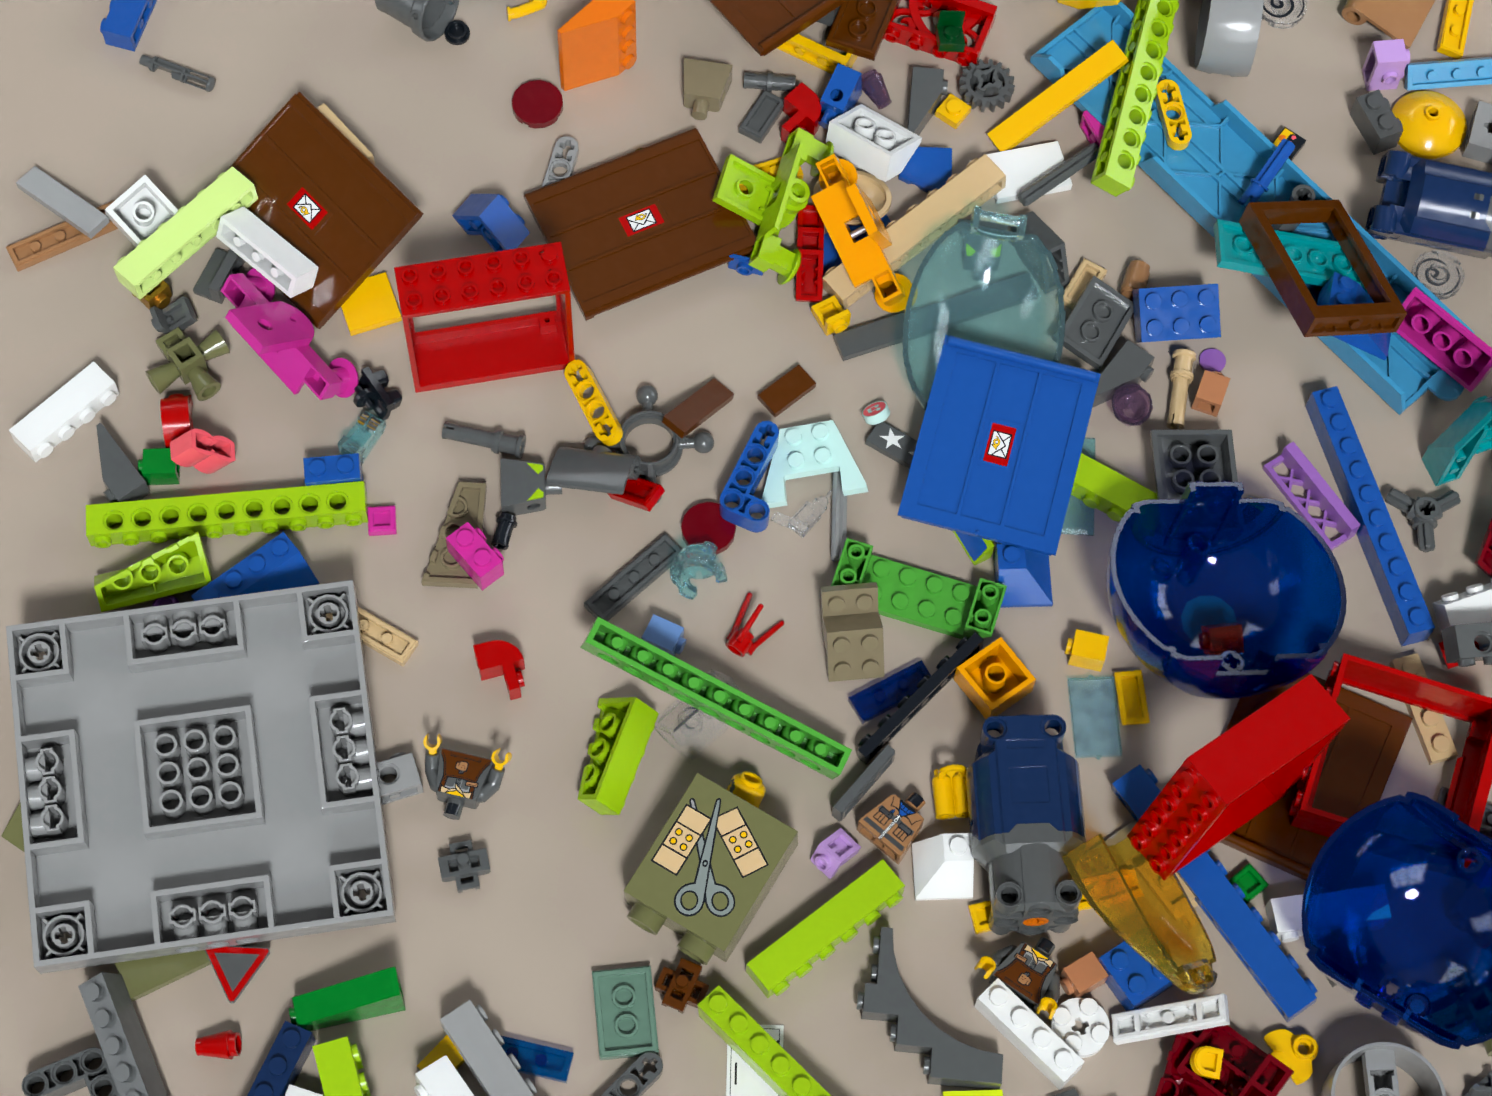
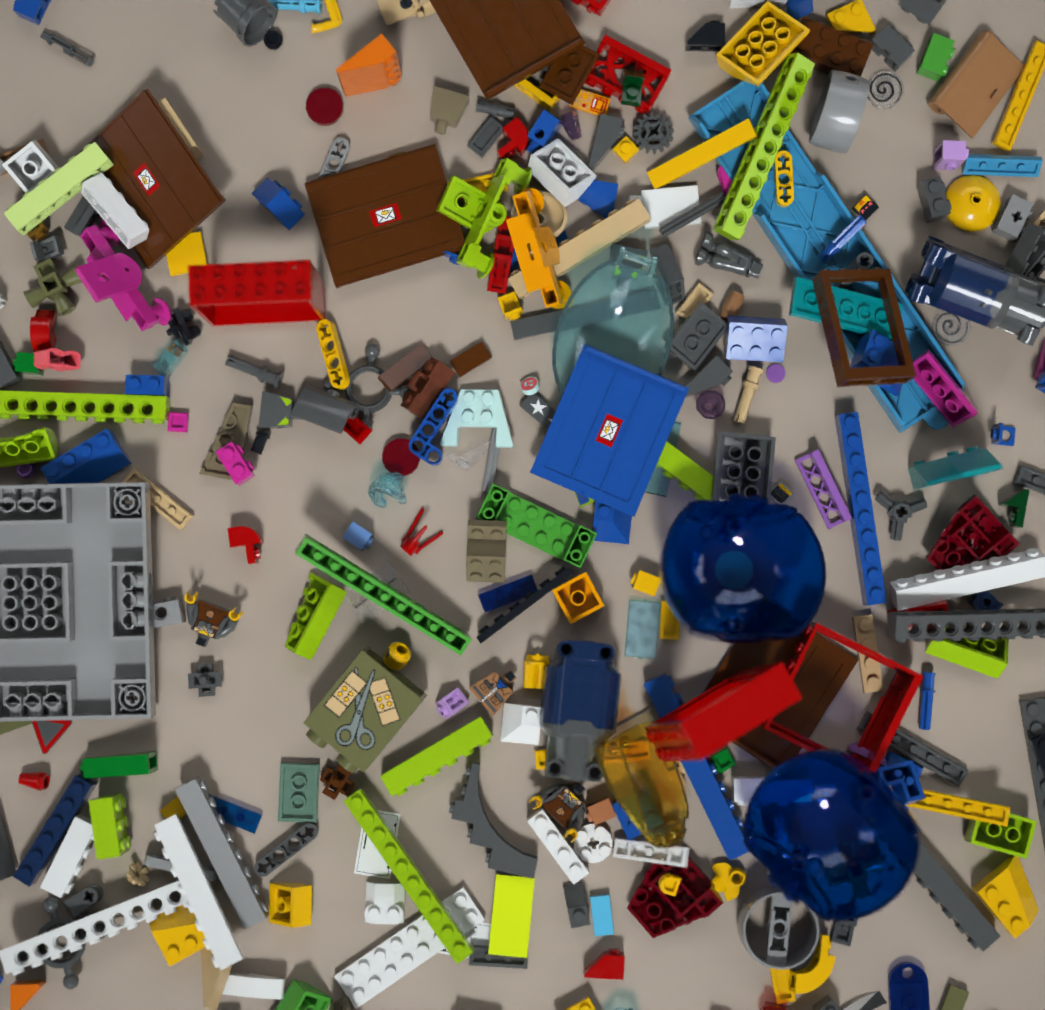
camera: 10 degrees right, 20 degrees up
(633, 579) = (345, 488): dark grey tile -> none
(731, 428) = (426, 387): none -> copper piece
(863, 783) = (478, 658): dark grey tile -> none
(895, 61) = (591, 103): none -> light orange tile
(1115, 223) = (726, 258): none -> dark grey piece
(1210, 393) = (769, 400): nougat brick -> none
(1221, 638) = (737, 592): clear red brick -> none

